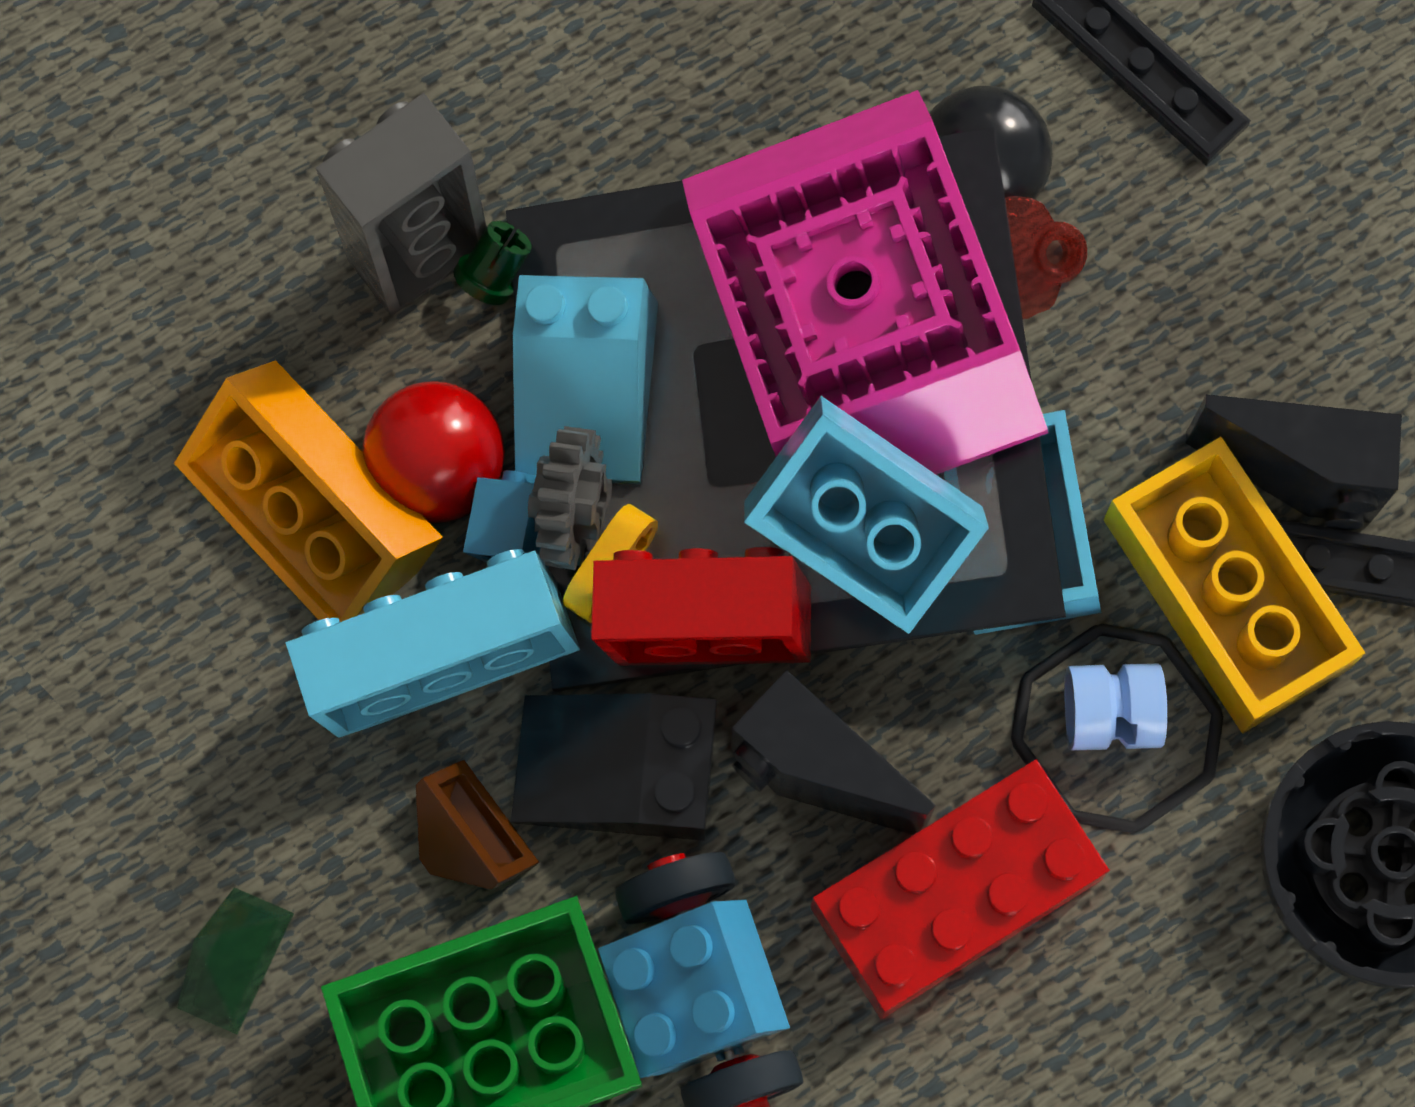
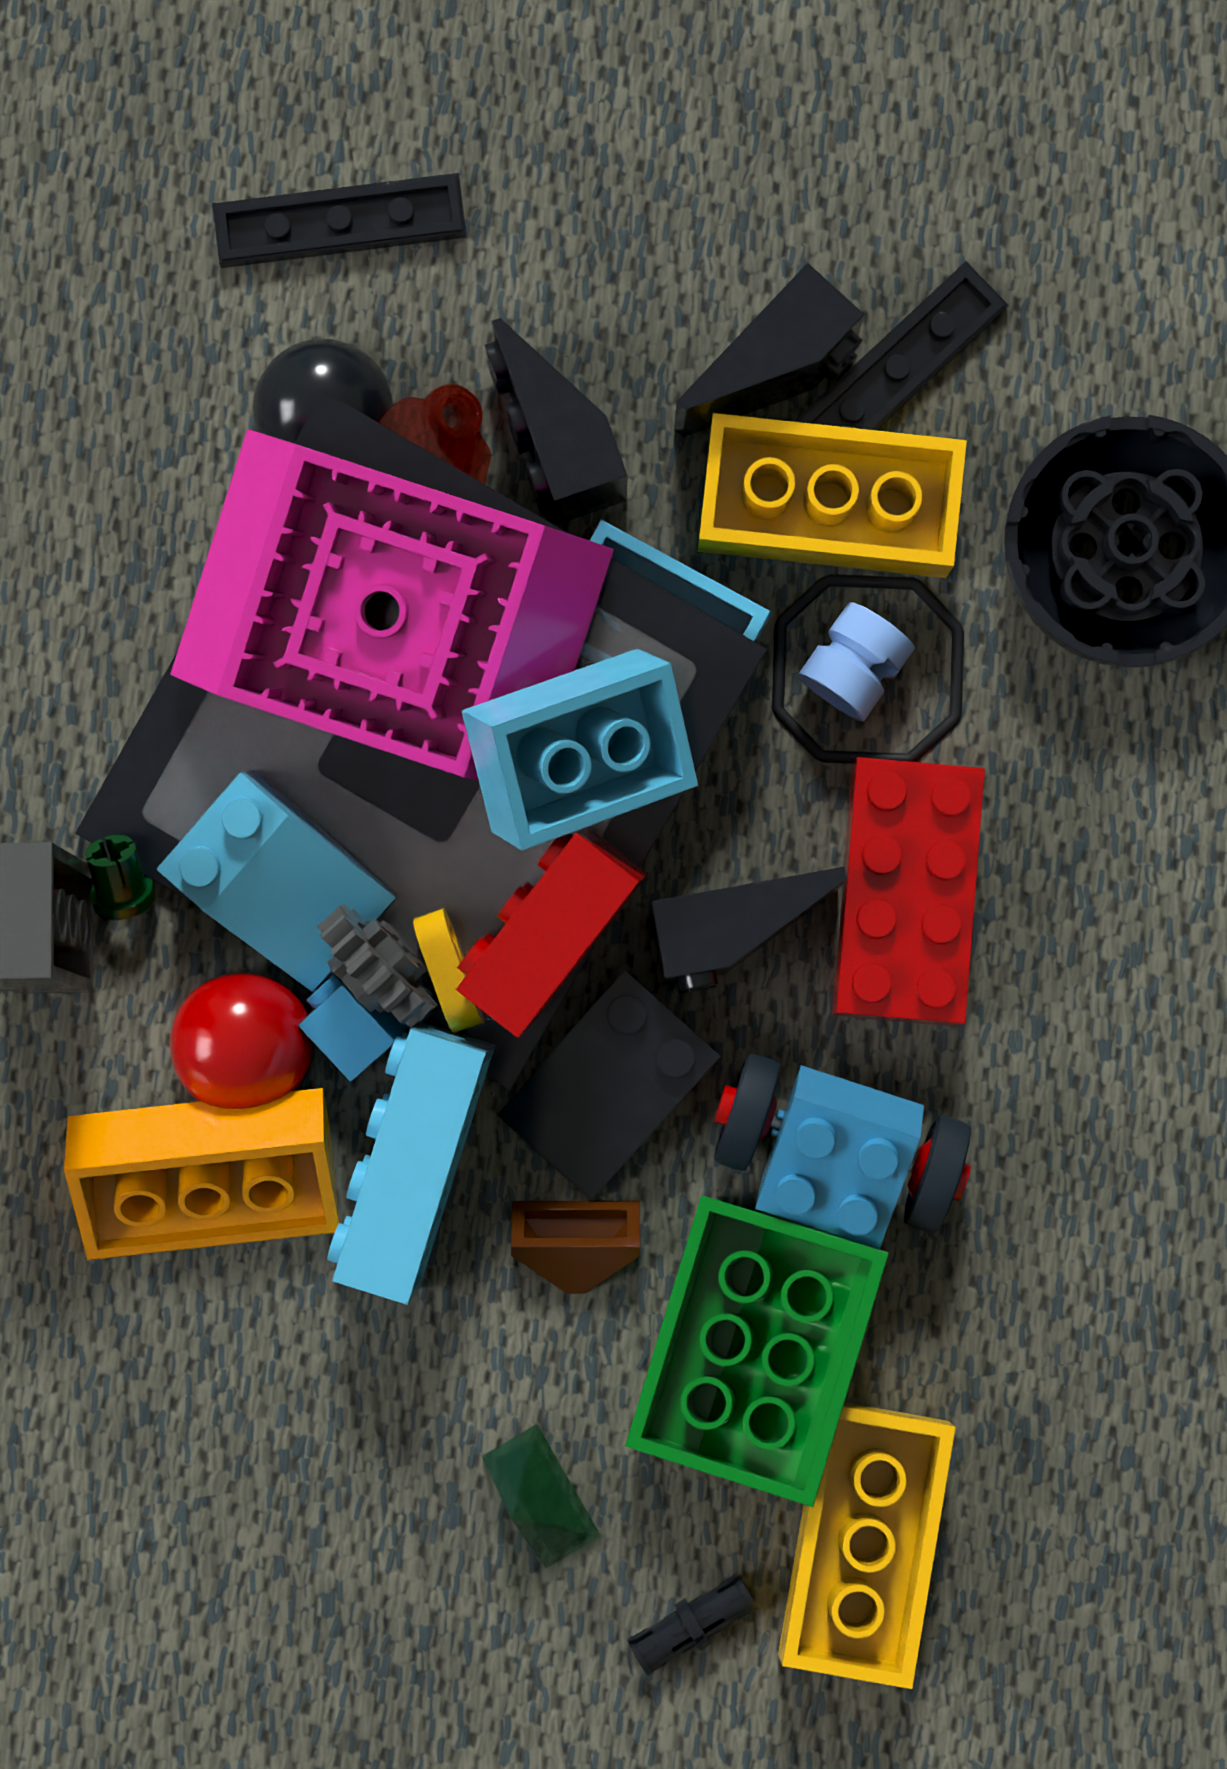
camera: 55 degrees left, 10 degrees up
(1104, 345) = (568, 436): none -> black slope

